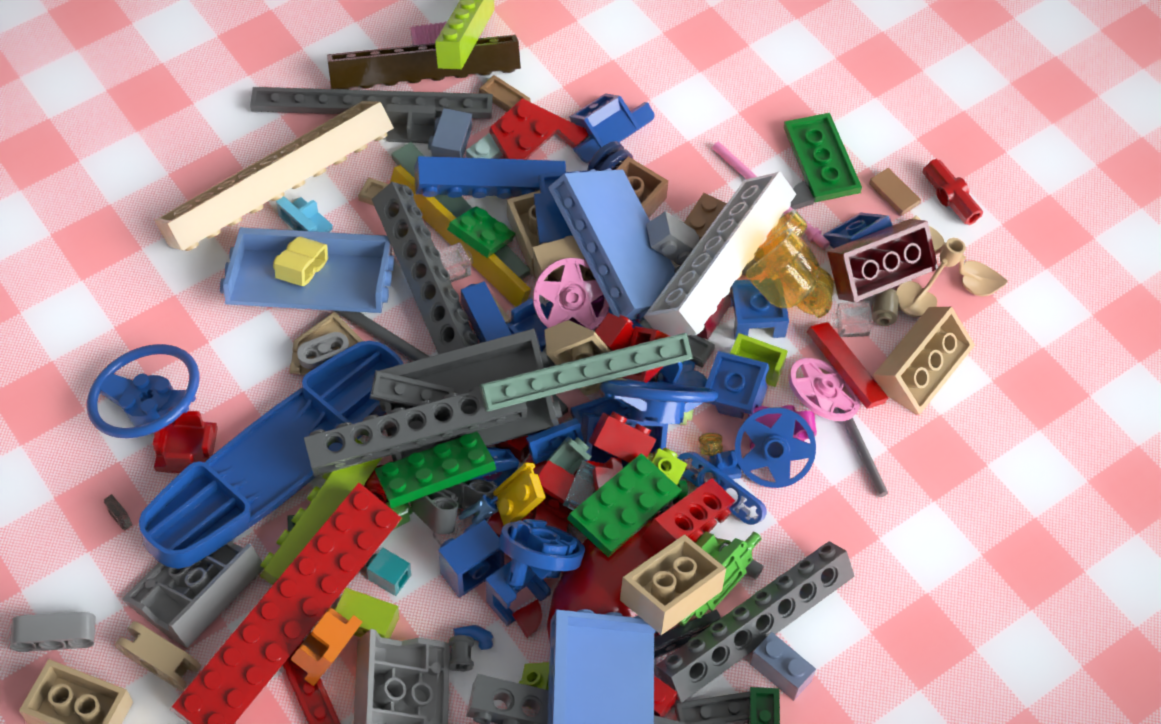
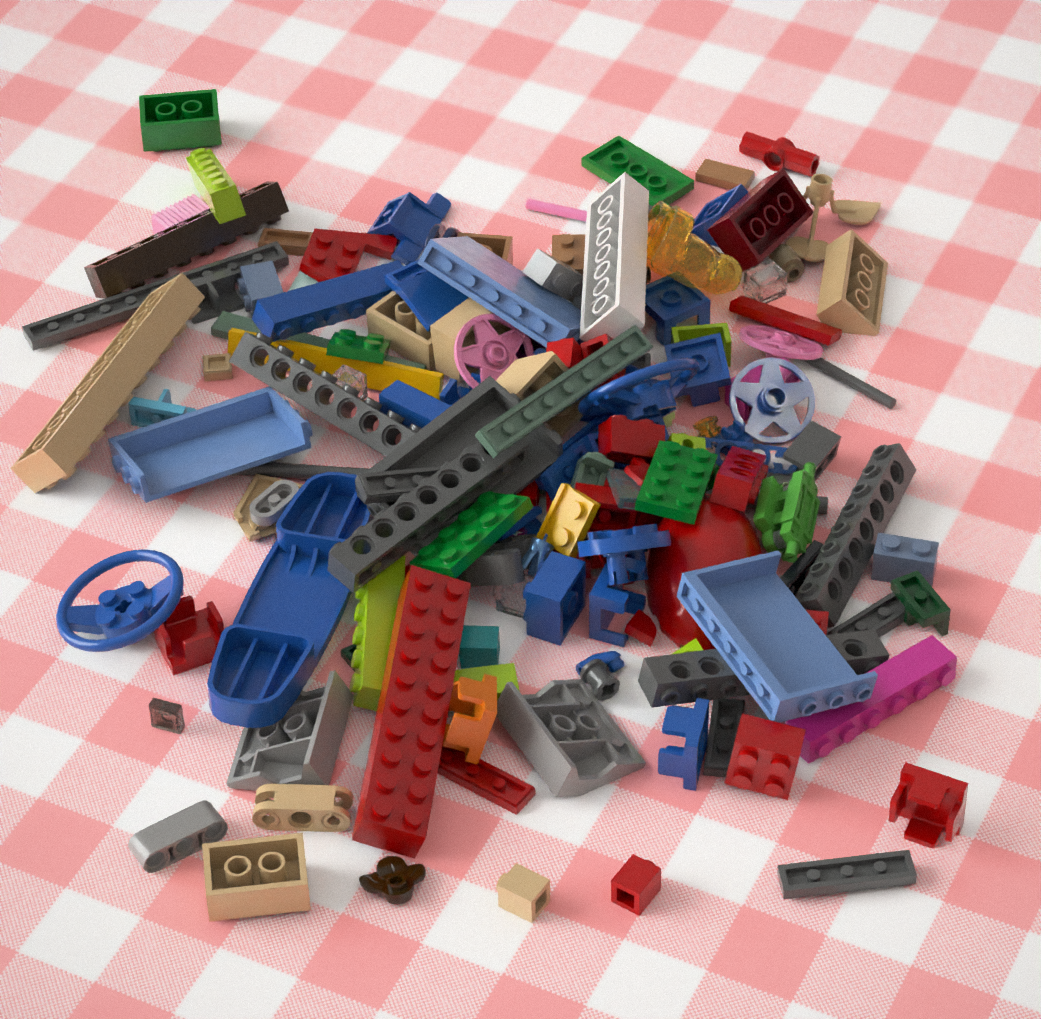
camera: 25 degrees left, 15 degrees down
(300, 261) = (194, 438): light yellow brick -> none
(672, 584) = (772, 512): tan brick -> none
(777, 514) = (813, 445): none -> dark grey panel

